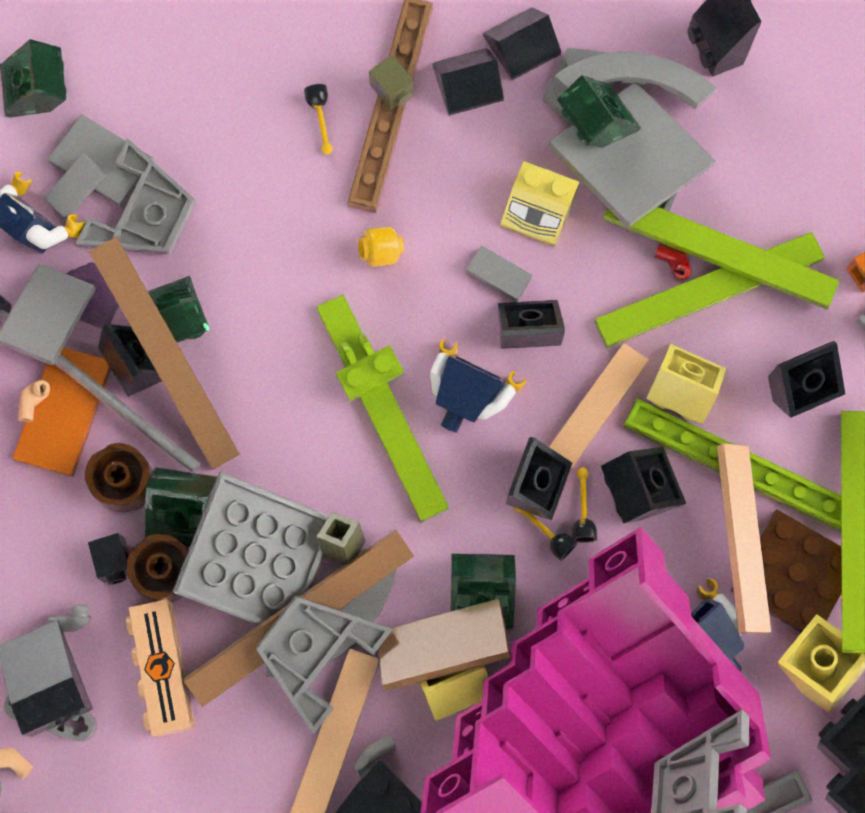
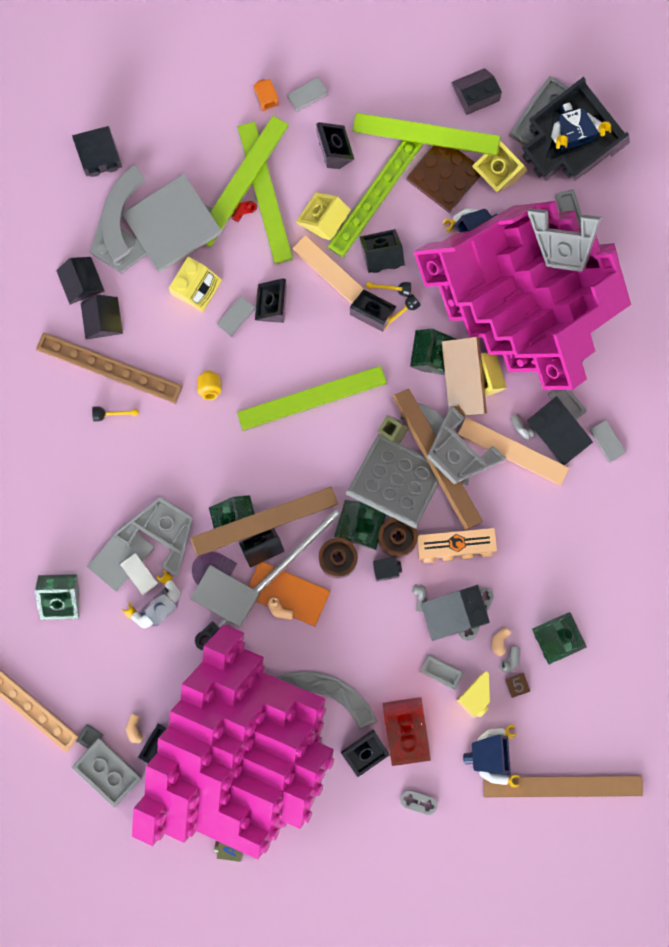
camera: 80 degrees left, 5 degrees up
(368, 372) = (290, 400): lime hinge -> none
(391, 82) = (100, 362): olive brick -> none
(468, 389) = (310, 343): dark blue torso -> none
(597, 112) = (144, 237): clear green slope -> none
(743, 539) = (423, 198): light nougat tile -> none

